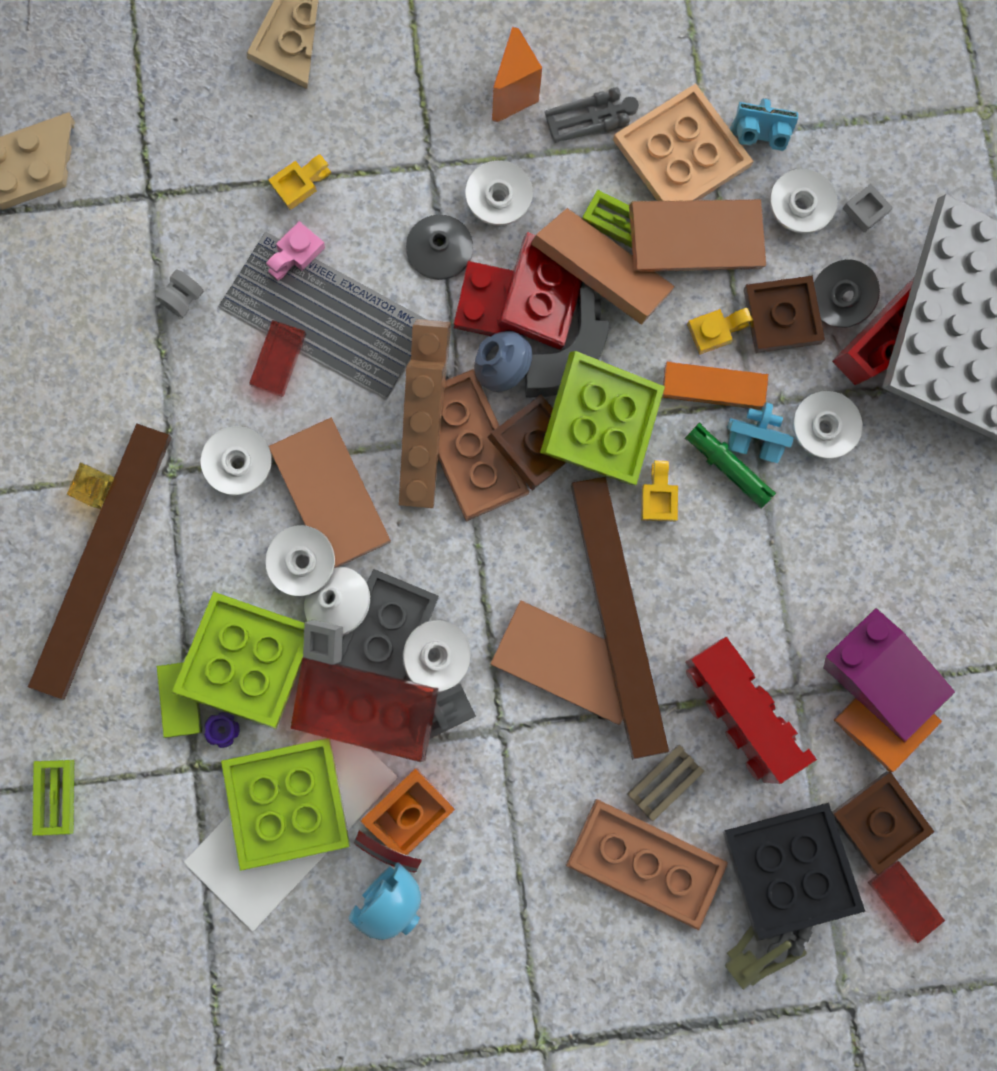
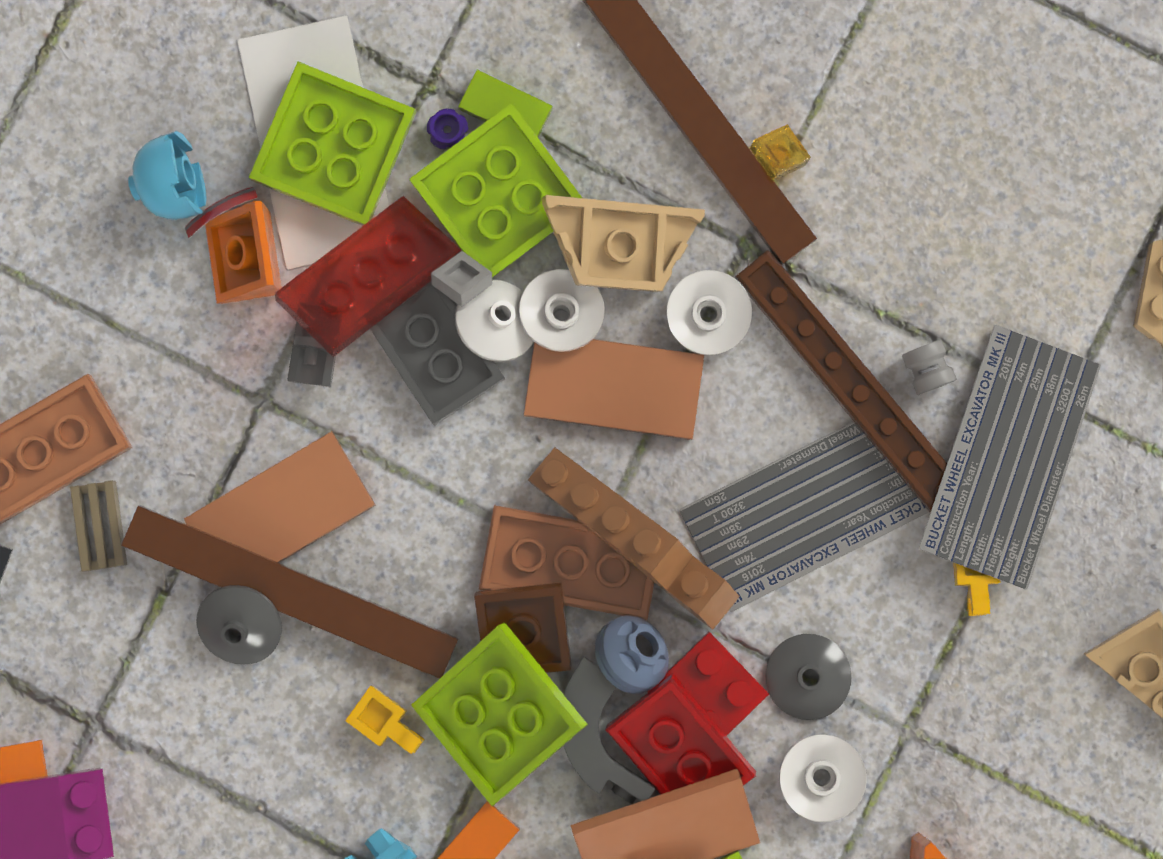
camera: 135 degrees right, 5 degrees up
(206, 207) = (1010, 457): none -> sticker
(224, 552) = (620, 241): none -> tan wing
(227, 330) = (845, 376): none -> reddish brown tile
(277, 358) = (793, 424): clear red tile -> none
(296, 248) = (902, 522): bright pink plate -> none
(451, 657) = (358, 384): white dish -> none
(654, 637) = (247, 612): none -> dark grey dish
(719, 455) = (360, 819): green pin -> none
(747, 713) = (104, 652): red wedge -> none

